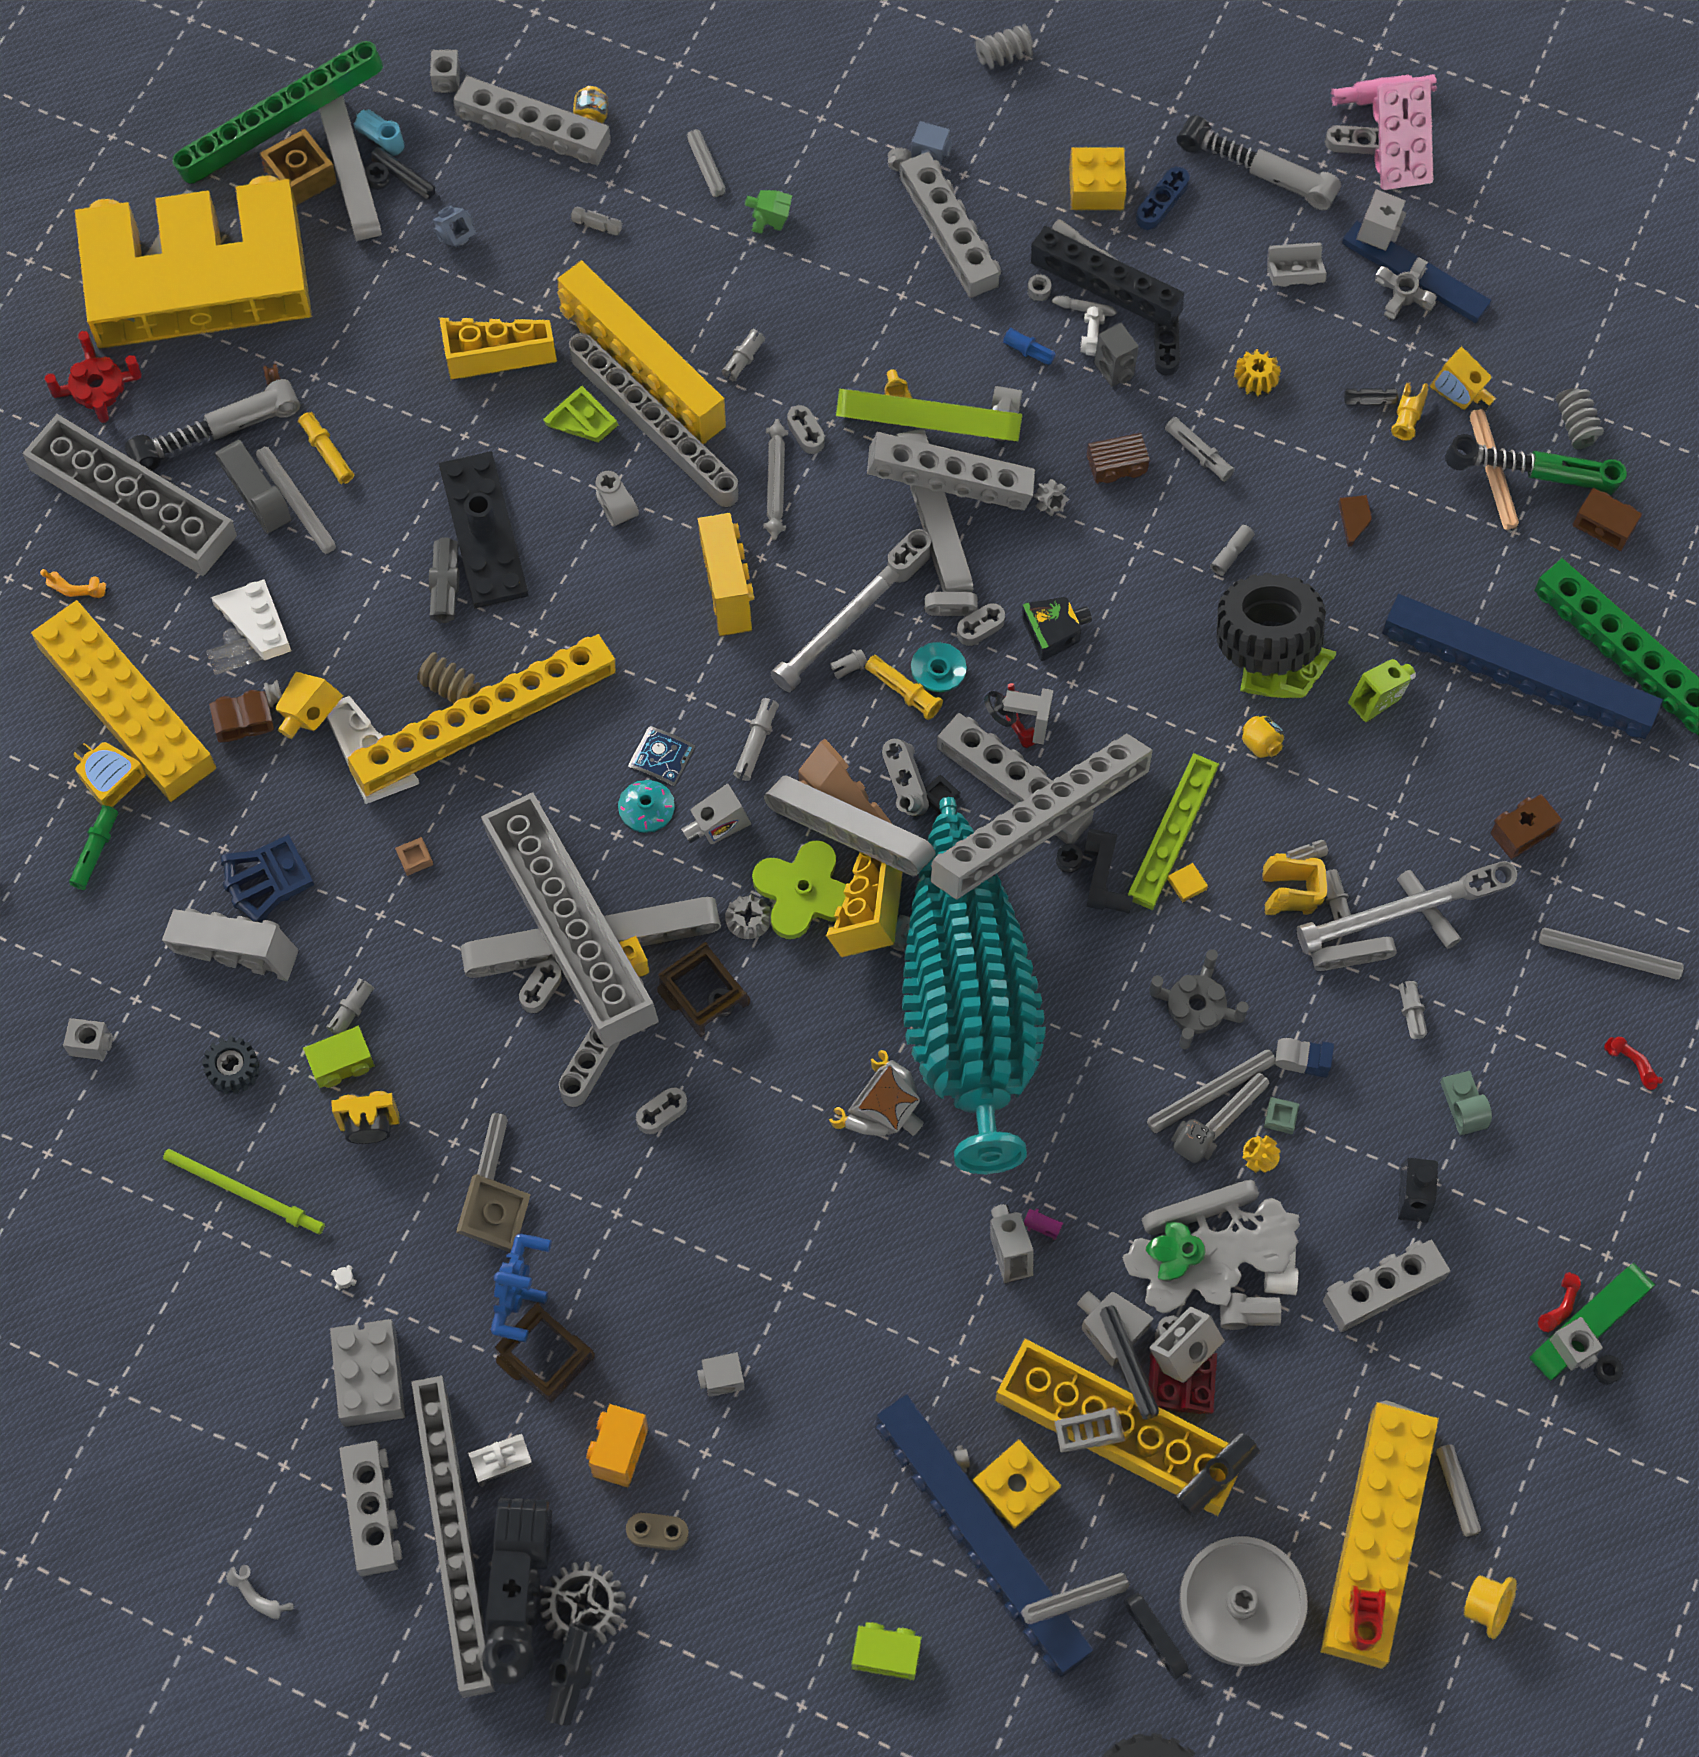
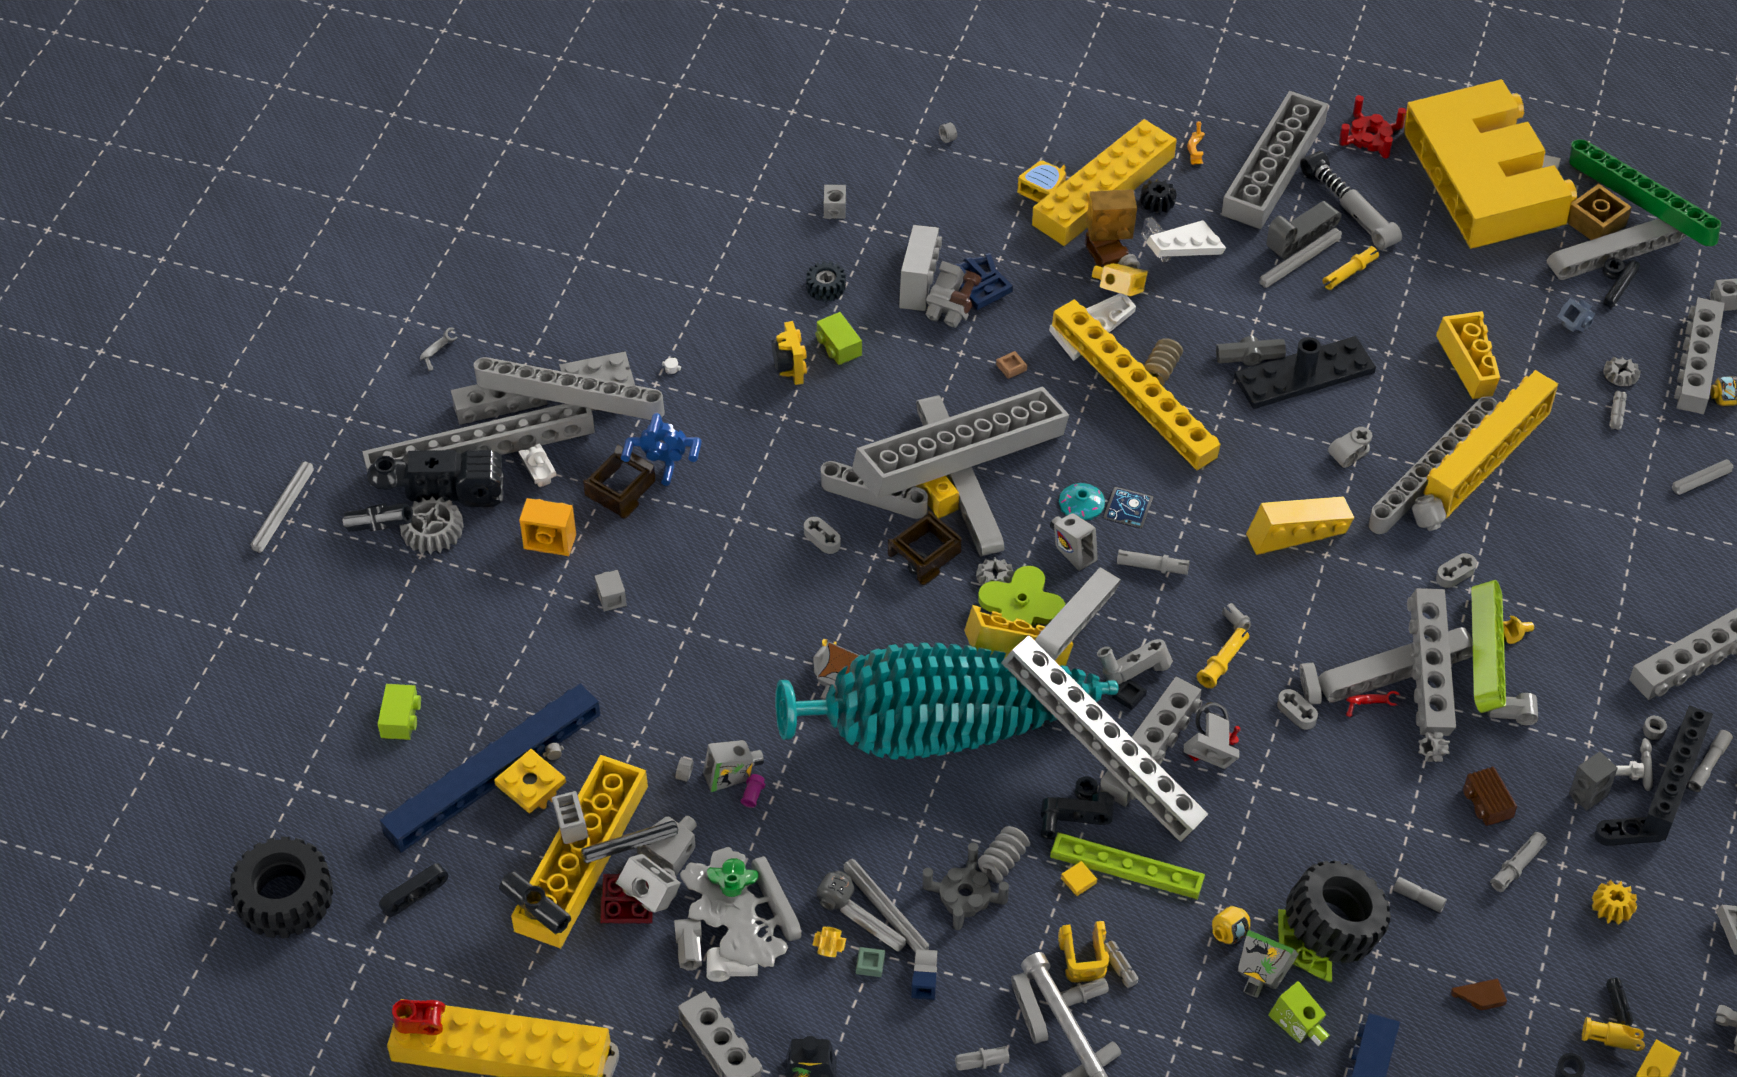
camera: 85 degrees right, 15 degrees down
(98, 836) = (985, 185): green pin -> none
(171, 644) = (1158, 196): none -> black gear
(216, 690) = (1111, 215): none -> pearl gold brick
(271, 374) = (1406, 227): reddish brown bush -> none
(294, 1215) = (716, 330): lime bar -> none
(300, 914) = (946, 296): none -> light grey hips
(350, 1007) = (881, 341): light grey pin -> none
(382, 132) = (1654, 263): medium azure piece -> none
(399, 1417) = (568, 388): none -> light grey beam
(492, 1146) = (762, 435): light grey axle -> none
(493, 1212) = (724, 437): dark tan plate -> none
(538, 213) = (1626, 377): none -> light grey gear
(582, 417) = (1425, 420): lime wing -> none
(656, 1531) = (489, 564): dark tan plate -> none
(727, 436) = (1429, 512): none -> light grey head
(743, 355) = (1515, 519): light grey pin -> none
(769, 209) = (1666, 520): bright green piece -> none
(775, 479) = (1401, 553): light grey wheel -> none
(787, 674) = (1340, 643): flat silver piece -> none
(828, 773) = (1118, 615): medium nougat wedge -> none
(938, 657) = (1249, 671): teal dish -> none
(976, 560) = (1368, 699): none -> red piece
(1005, 1301) = (684, 769): none -> light grey axle
(1028, 346) = (1588, 723): blue axle -> none
(1054, 625) = (1305, 759): black torso -> none
(1075, 1598) = (438, 824): light grey axle -> none
(1157, 955) = (1003, 853): none -> light grey piece
(1243, 1601) = (439, 944): light grey dish -> none
(1317, 709) = (1264, 962): none -> light grey torso

